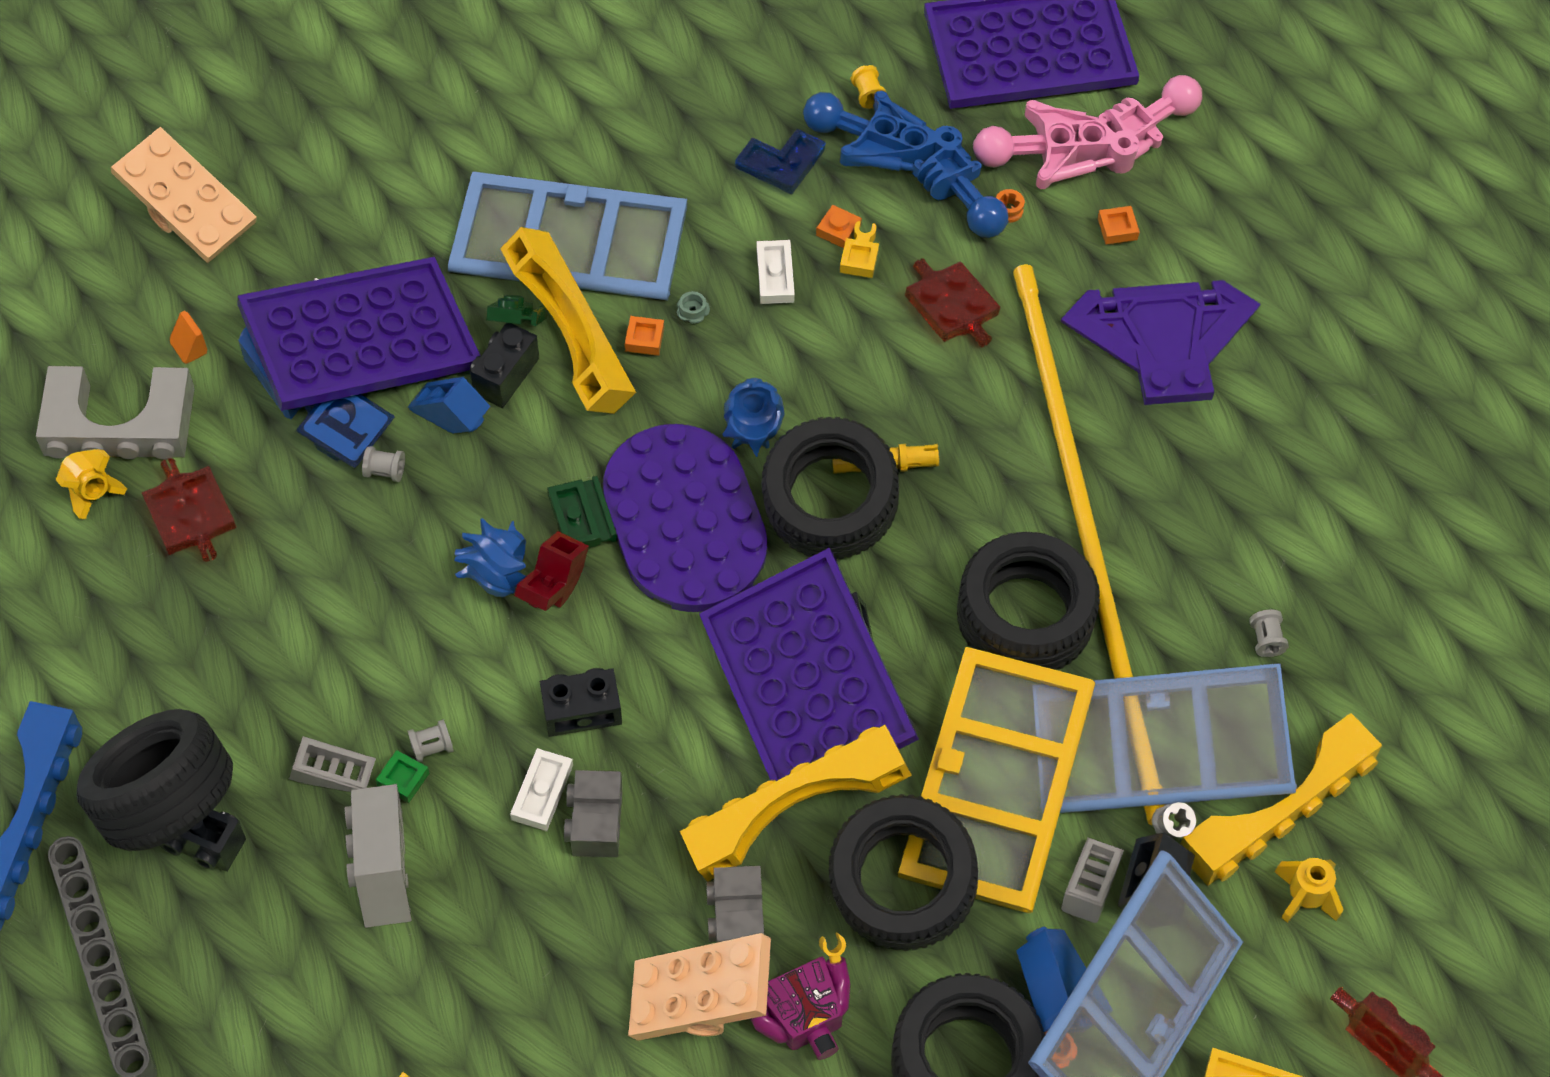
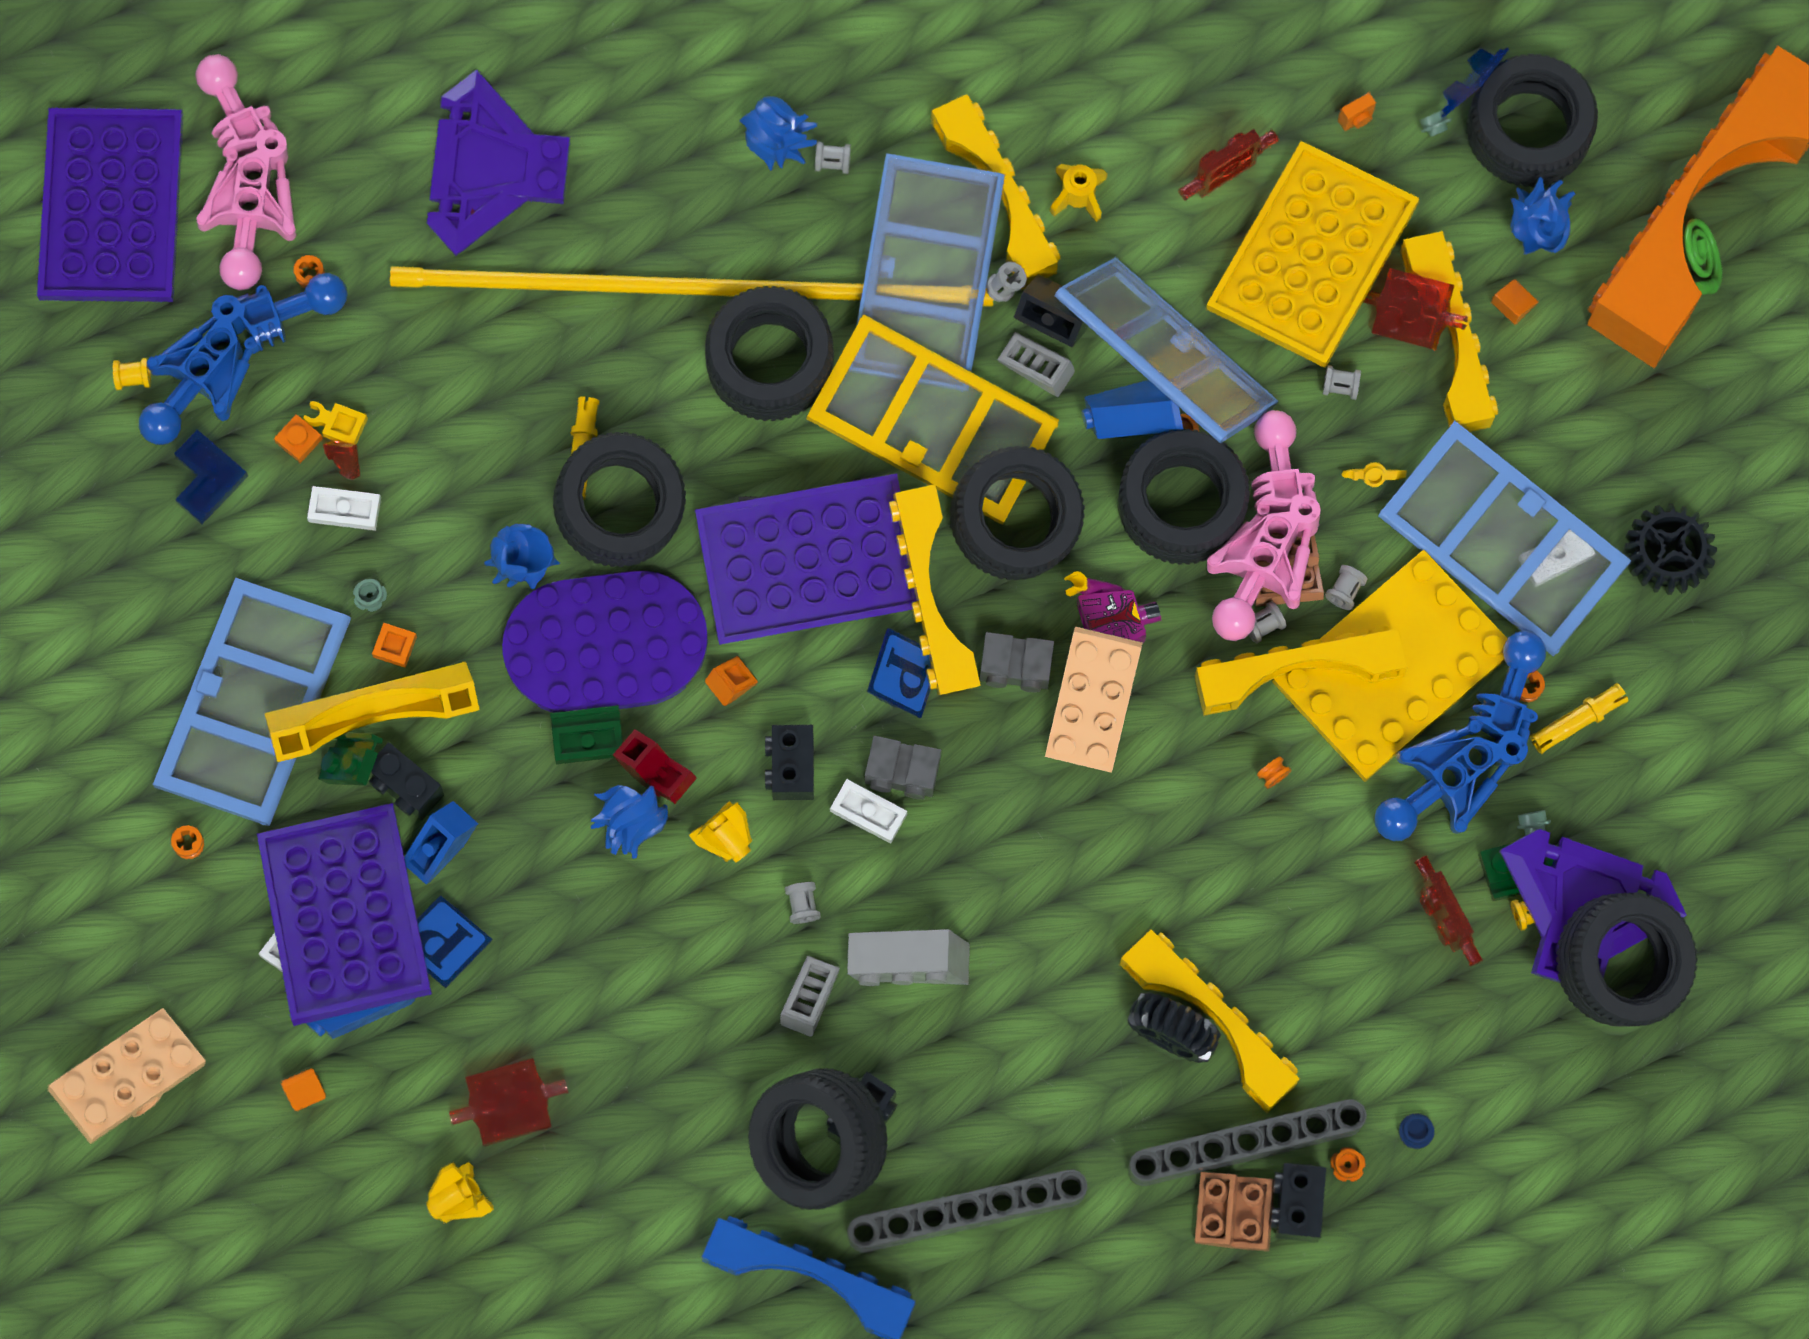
camera: 80 degrees left, 15 degrees up
(155, 432) = (393, 1212): light grey arch -> none
(383, 464) = (494, 911): light grey bush -> none
(405, 773) = (832, 931): green plate -> none
(417, 217) = (197, 846): none -> orange bush
(492, 652) = (725, 833): none -> yellow brick
(667, 637) = (730, 680): none -> orange slope
(696, 788) = (901, 674): none -> piece
(831, 260) = (345, 458): none -> clear red tile
(952, 301) = (413, 350): clear red plate -> none
(1118, 225) = (358, 174): orange plate -> none
(1278, 568) = (776, 131): none -> blue hair

